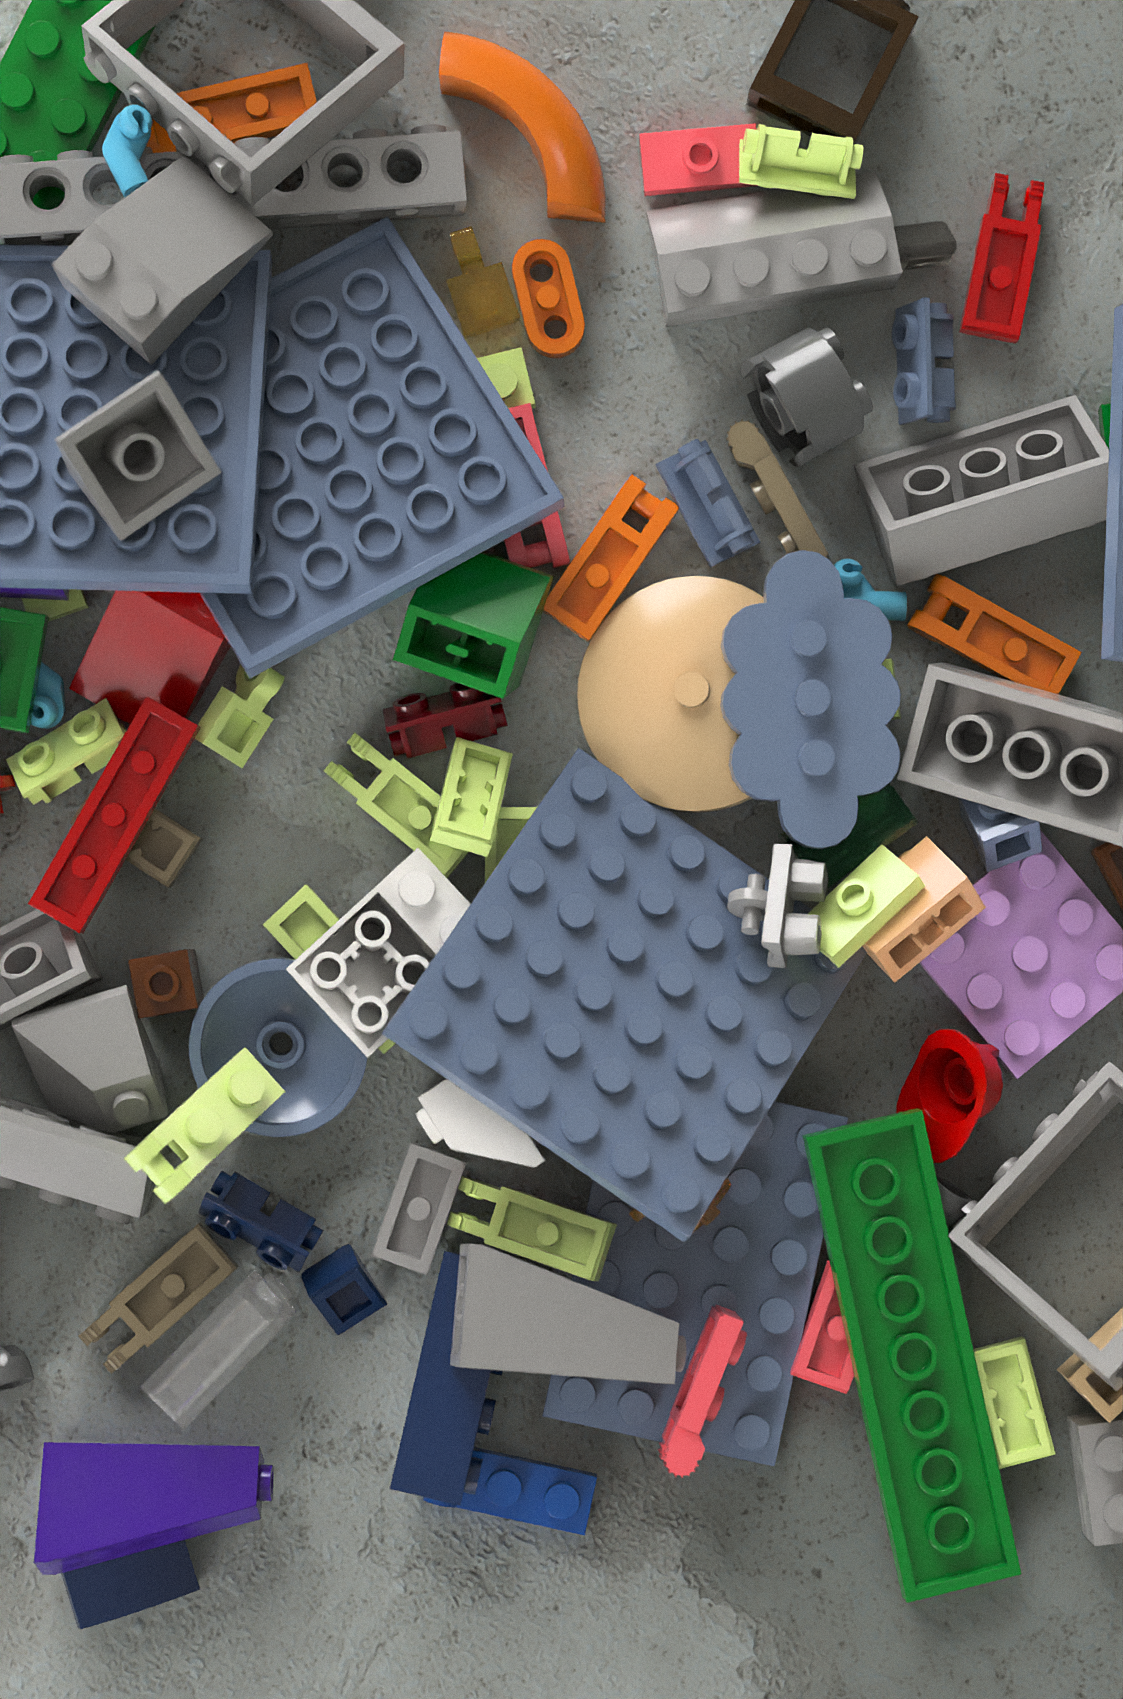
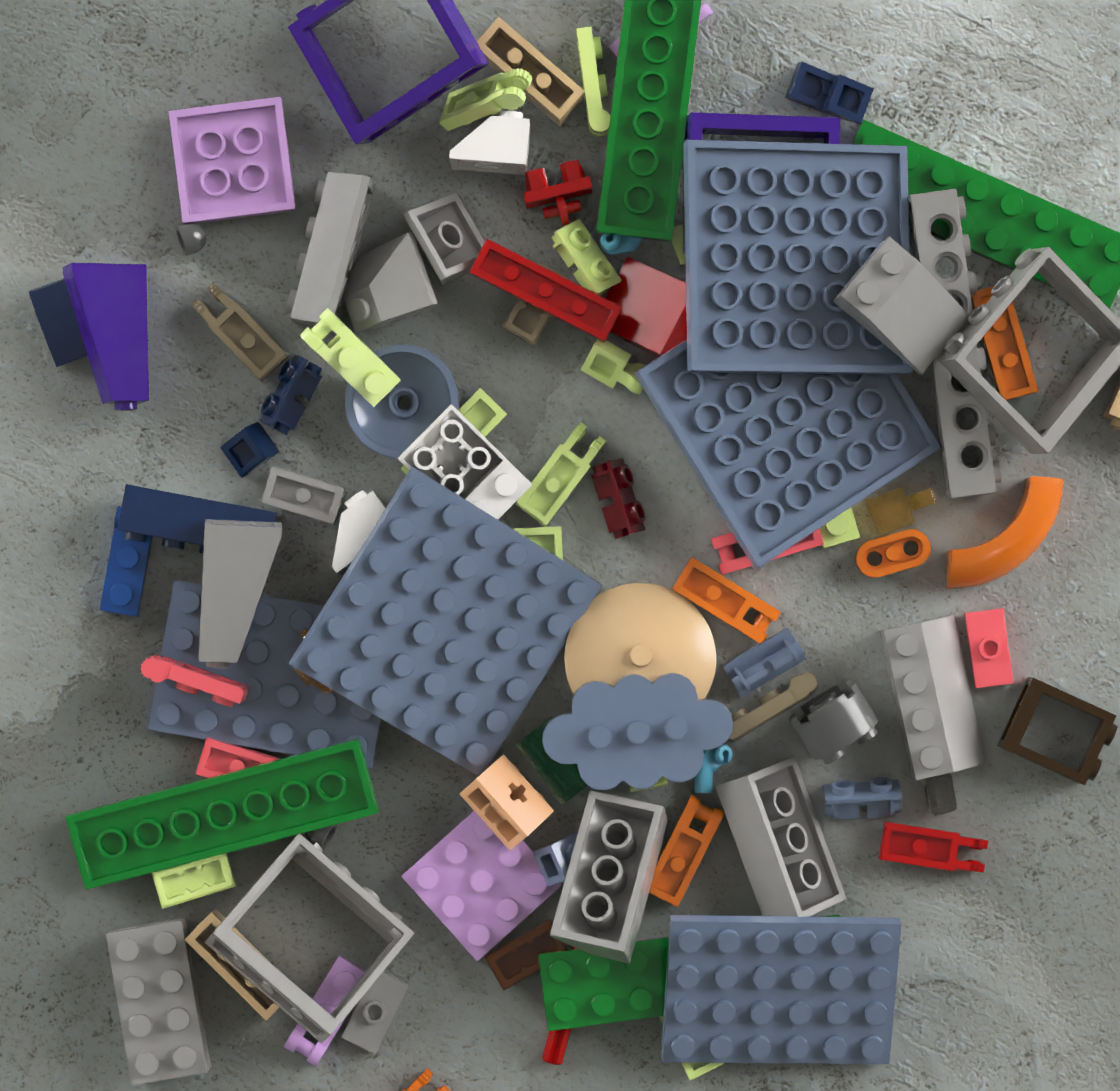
camera: 90 degrees right, 0 degrees up
(126, 145) = (972, 278): medium azure arm -> none
(137, 456) = (769, 296): light grey slope -> none
(166, 983) = (440, 328): reddish brown brick -> none
(220, 1347) = (210, 373): clear brick -> none
(471, 797) = (567, 517): yellowish green plate -> none
(476, 623) = (677, 515): green slope -> none
(538, 1229) = (292, 572): yellowish green hinge -> none
(774, 160) = (986, 699): yellowish green hinge -> none
(783, 930) = (489, 718): light grey hips -> none
(864, 903) = (506, 768): yellowish green plate -> none
(953, 1087) = (393, 833): red piece -> none

